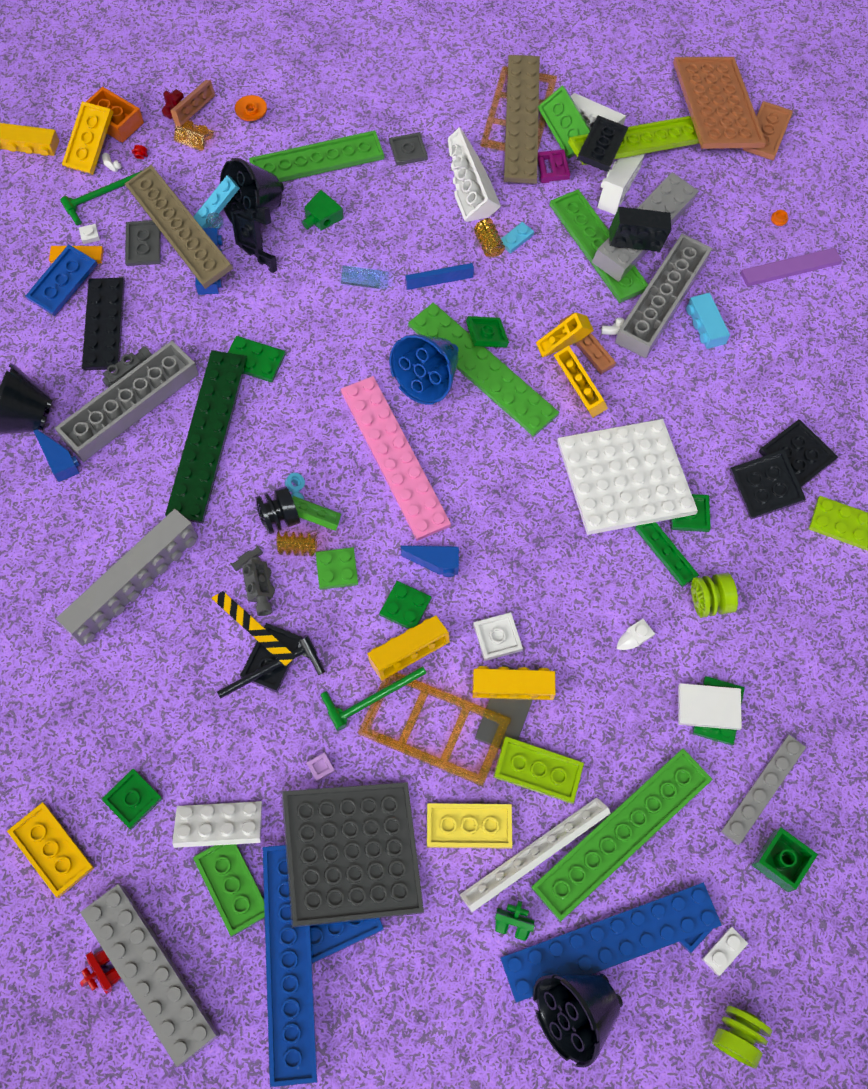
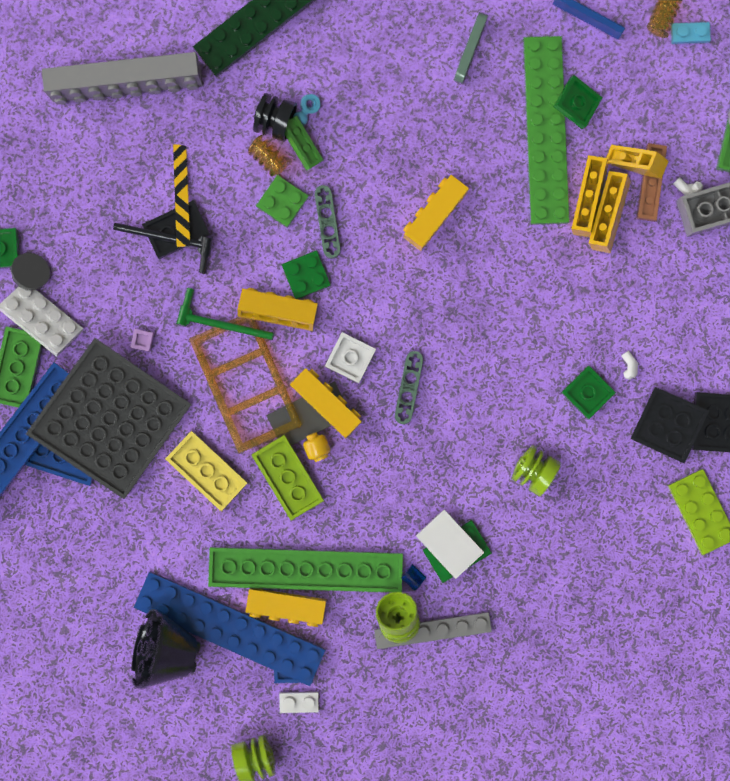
camera: 45 degrees right, 20 degrees up
(176, 792) = (30, 271): none -> dark grey tile
(245, 558) = (224, 134): dark grey piece -> none
(258, 585) = (212, 164): dark grey brick -> none
(378, 356) = (470, 47): none -> sand green beam
(386, 554) = (327, 222): none -> sand green beam
(395, 458) = (406, 146): bright pink plate -> none
(424, 367) = (495, 93): blue cone -> none
(439, 559) = (361, 261): blue slope -> none
(460, 481) = (435, 213): none -> yellow brick
(523, 924) = (180, 557): green hips -> none
(534, 854) = (233, 529): white plate -> none
(538, 725) = (316, 447): none -> yellow head
(557, 382) = (589, 195): none -> yellow brick
(565, 619) = (406, 387): none -> sand green beam
(626, 476) = (568, 320): white plate -> none
(635, 636) = (451, 446): white plate -> none
(637, 877) = (285, 606): none -> yellow brick
(667, 553) = (538, 406): green plate -> none
(699, 468) = (632, 365): none -> white arm
(709, 759) = (413, 577): none -> clear blue tile
(730, 788) = (398, 607): none -> lime wheel
(784, 860) = (394, 687): green brick -> none

